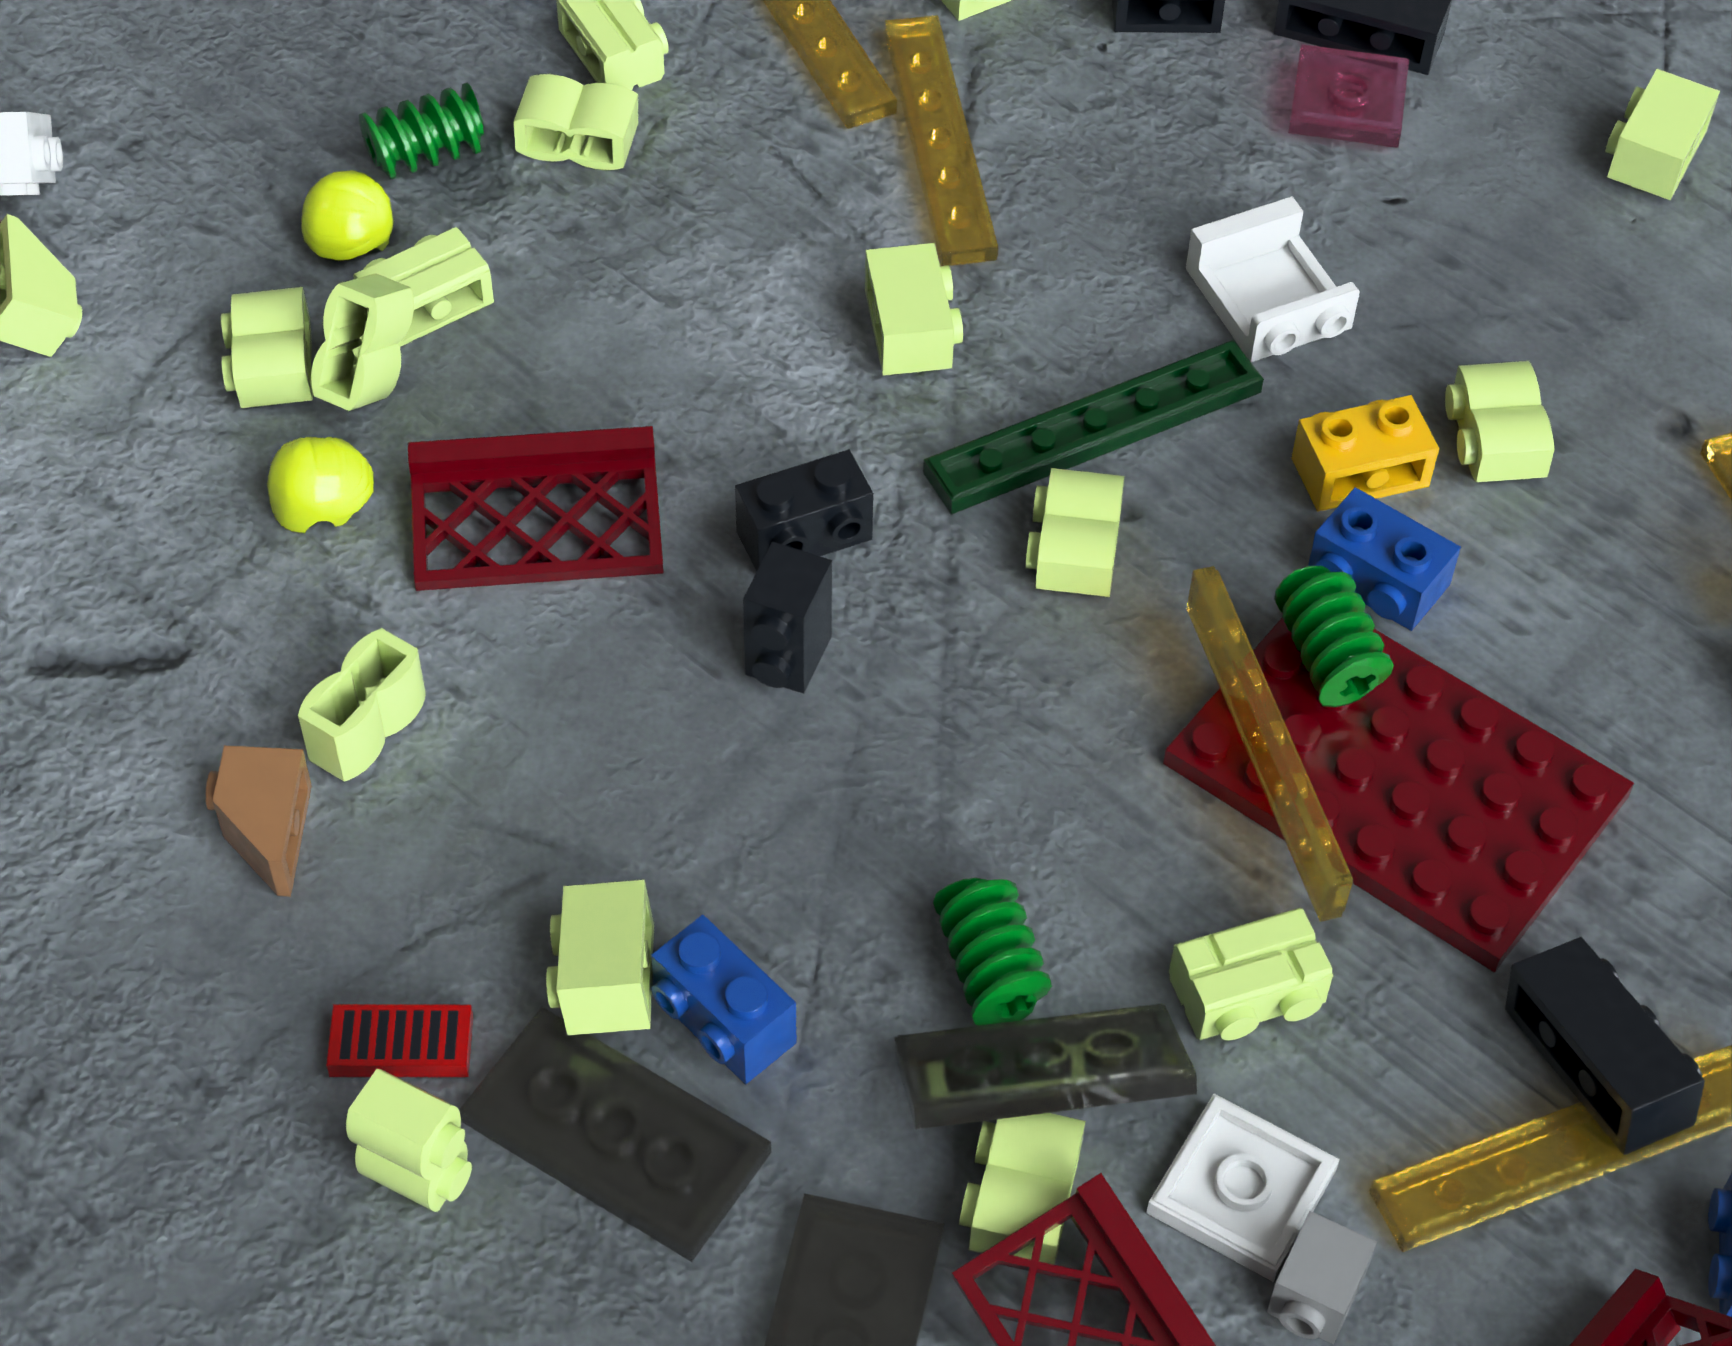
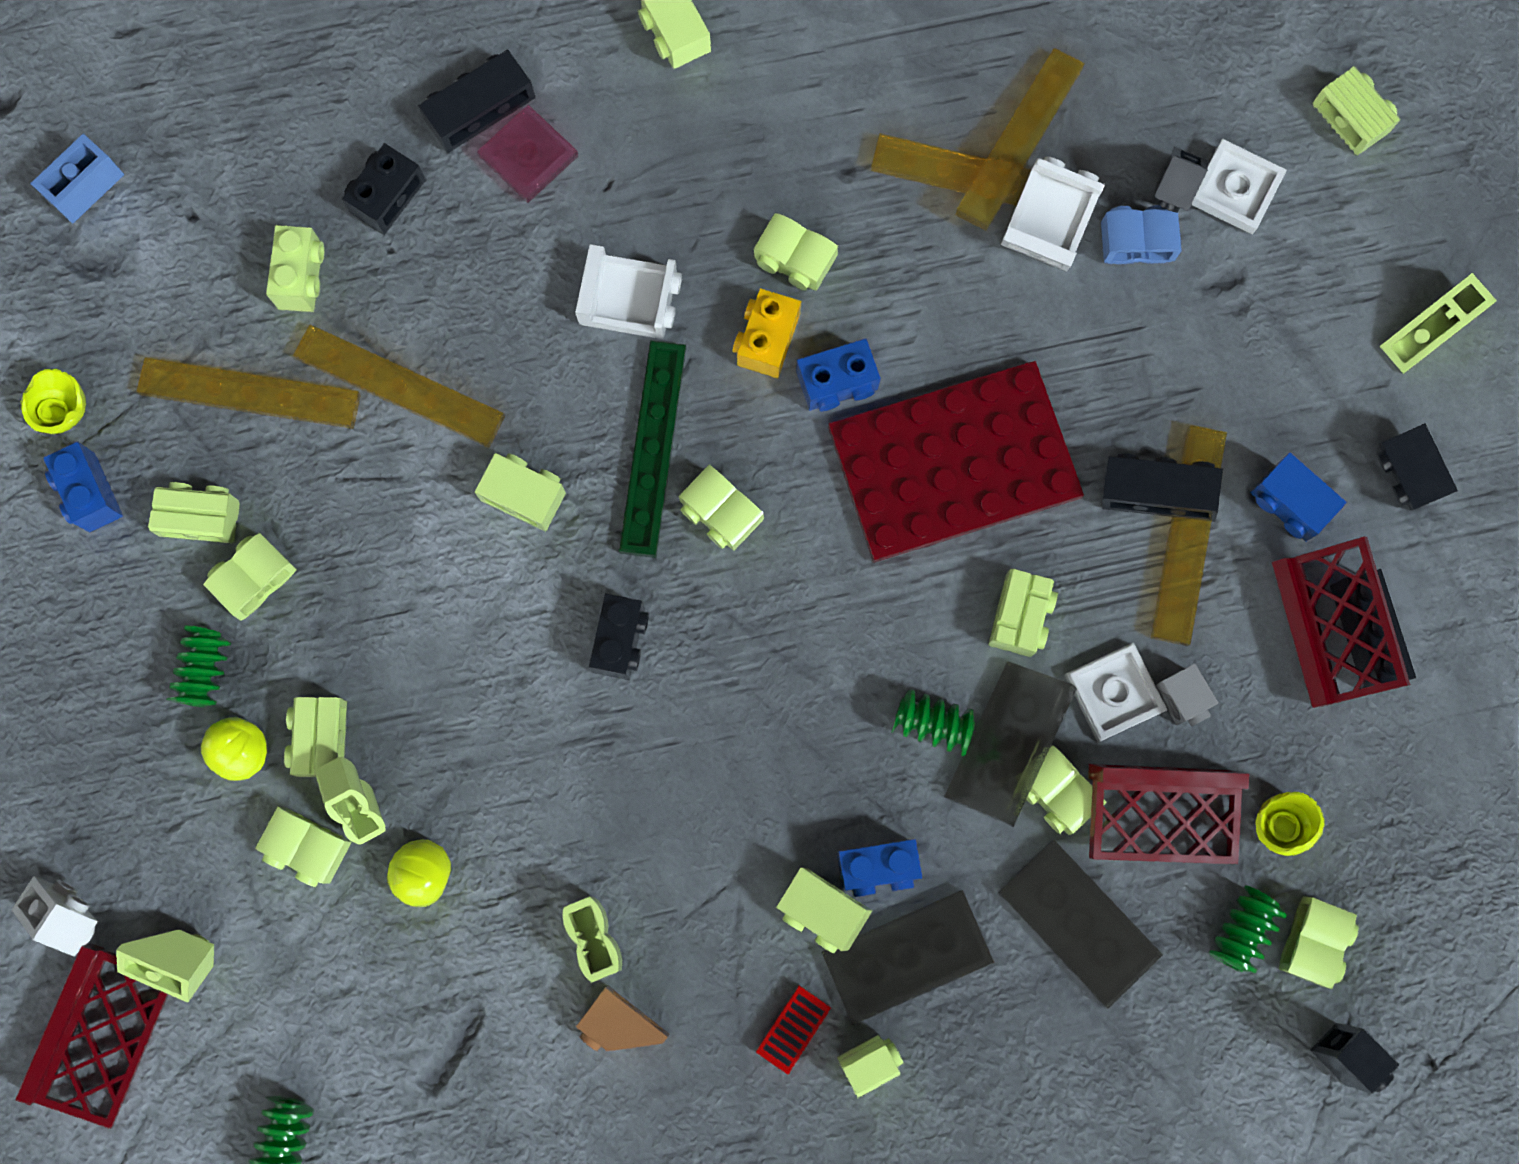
camera: 55 degrees left, 25 degrees up
(540, 462) = (486, 757): dark red fence -> none
(787, 617) = (688, 694): black brick -> none
(1269, 745) = (915, 516): clear yellow tile -> none
(1333, 634) = (881, 440): green piece -> none

